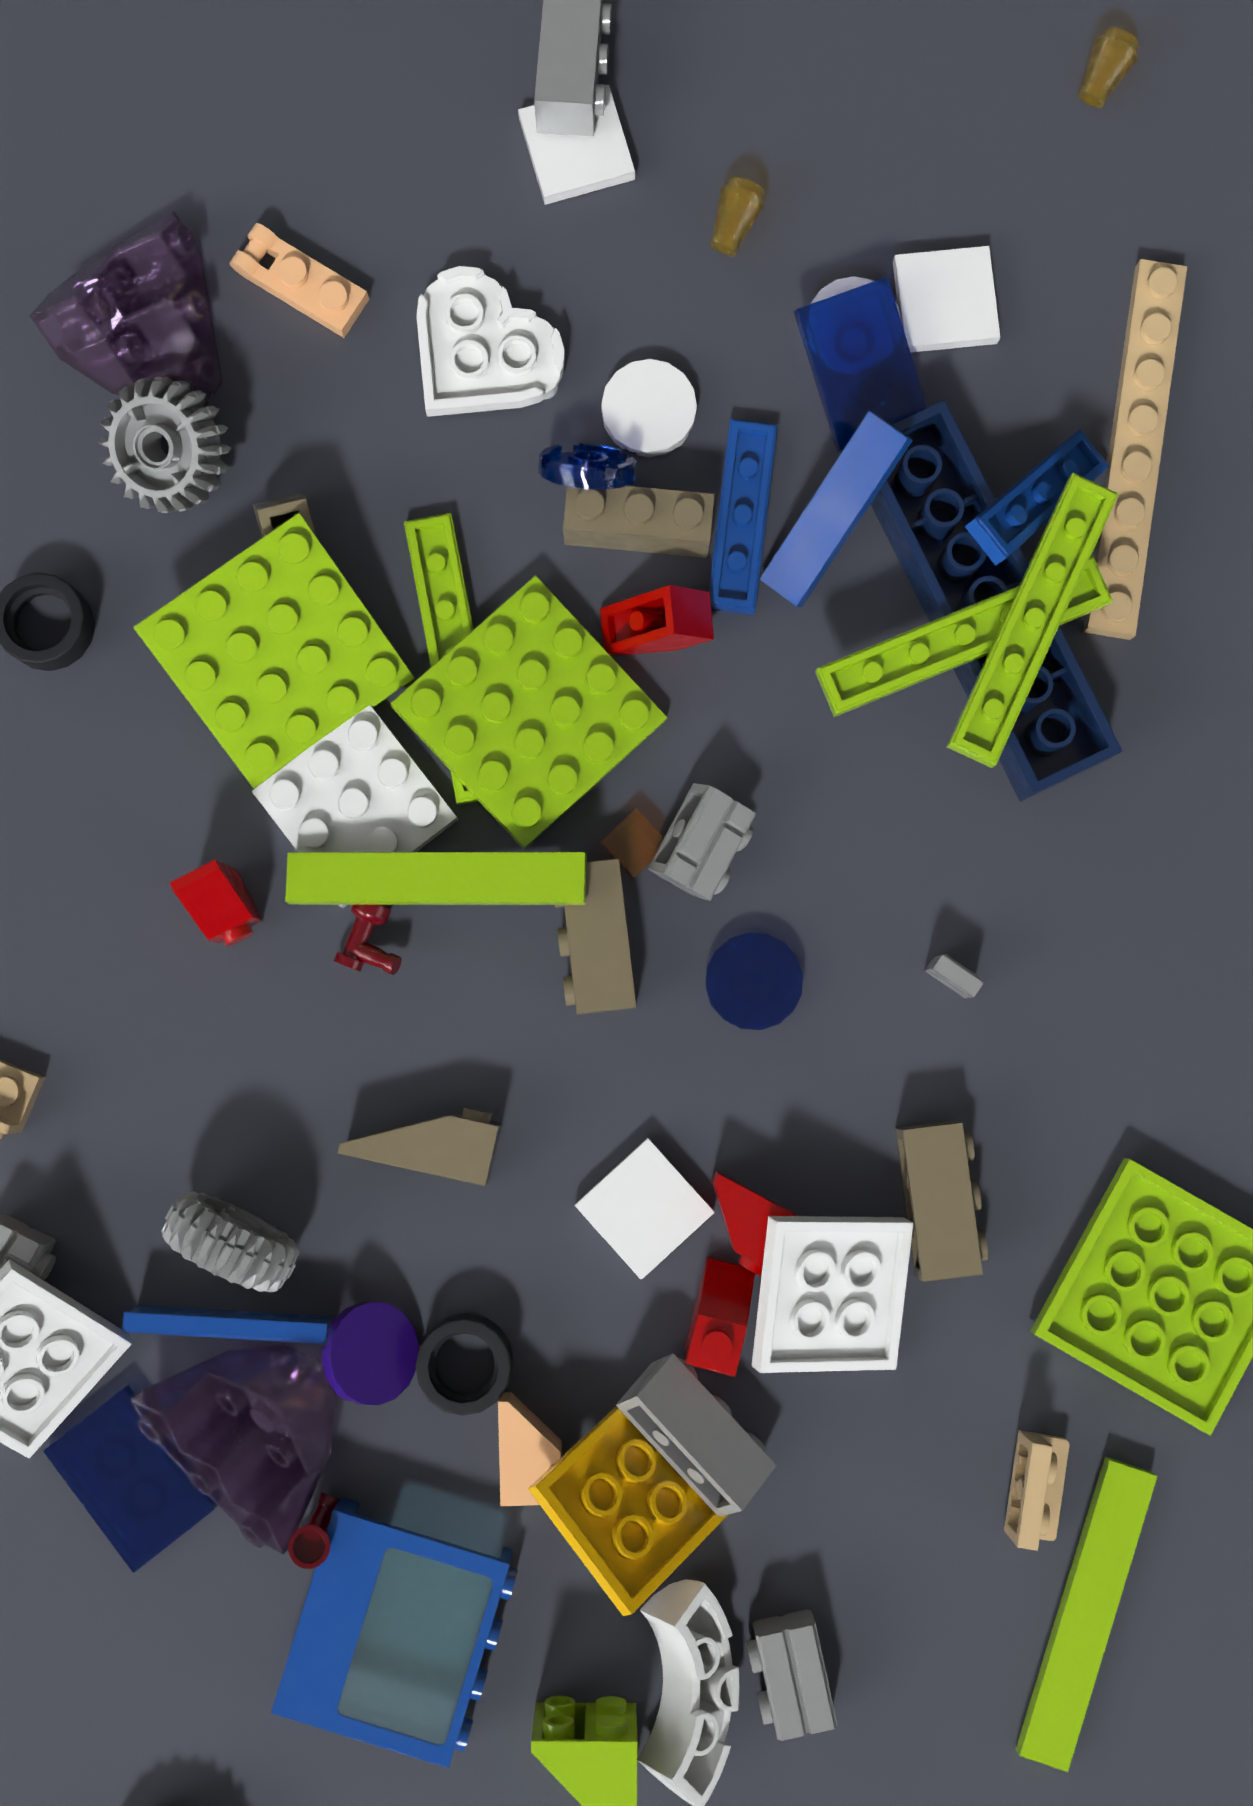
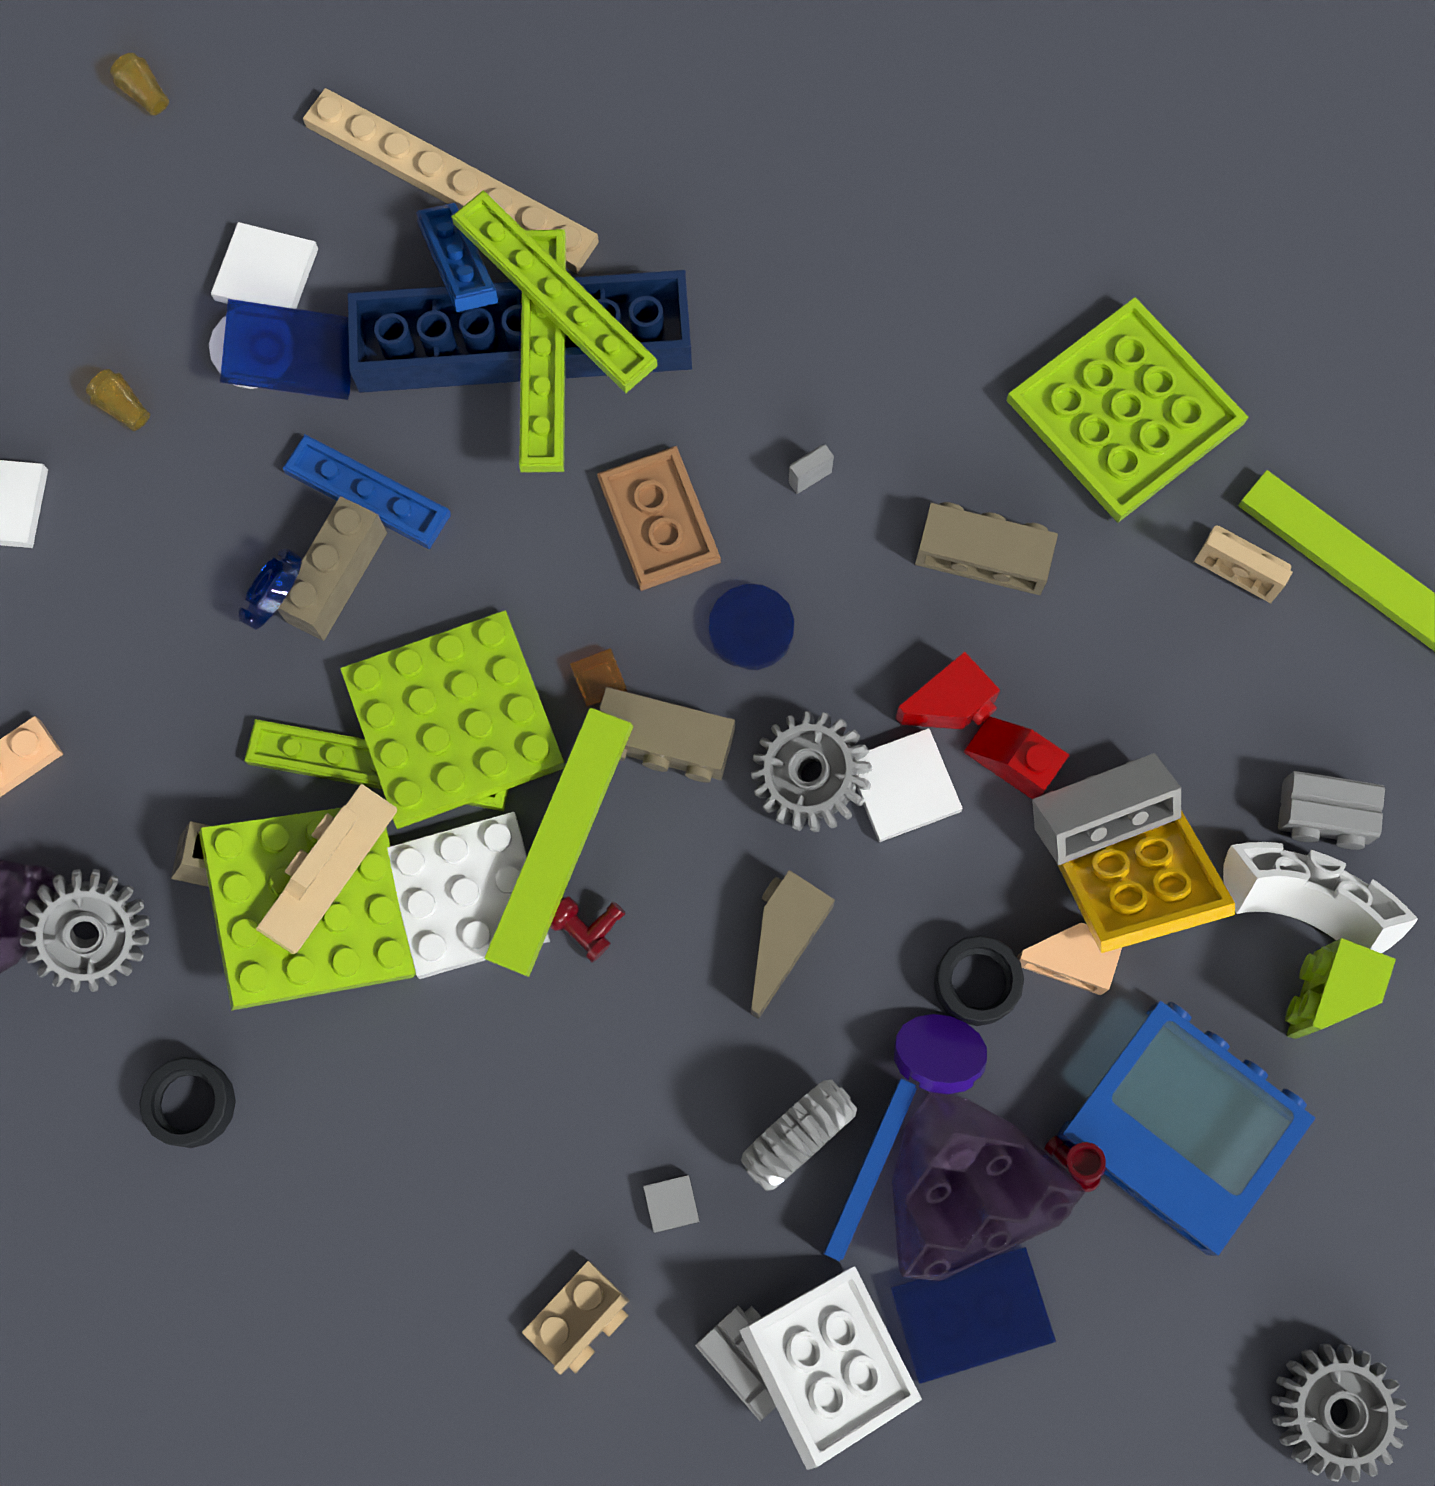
camera: 60 degrees left, 10 degrees down
(126, 1137) = (671, 1204): none -> light grey tile
(217, 902) = (502, 1035): red slope -> none
(312, 657) = (326, 869): none -> tan bracket
(482, 350) = (130, 642): white plate -> none
(640, 1125) = (830, 790): none -> light grey gear
(649, 407) = (242, 528): white tile -> none
(657, 621) = (423, 587): red slope -> none
(703, 842) = (620, 618): light grey brick -> none
(831, 1293) = (1030, 655): white plate -> none
(836, 509) = (396, 409): tile -> none
(836, 834) = (658, 518): none -> medium nougat tile

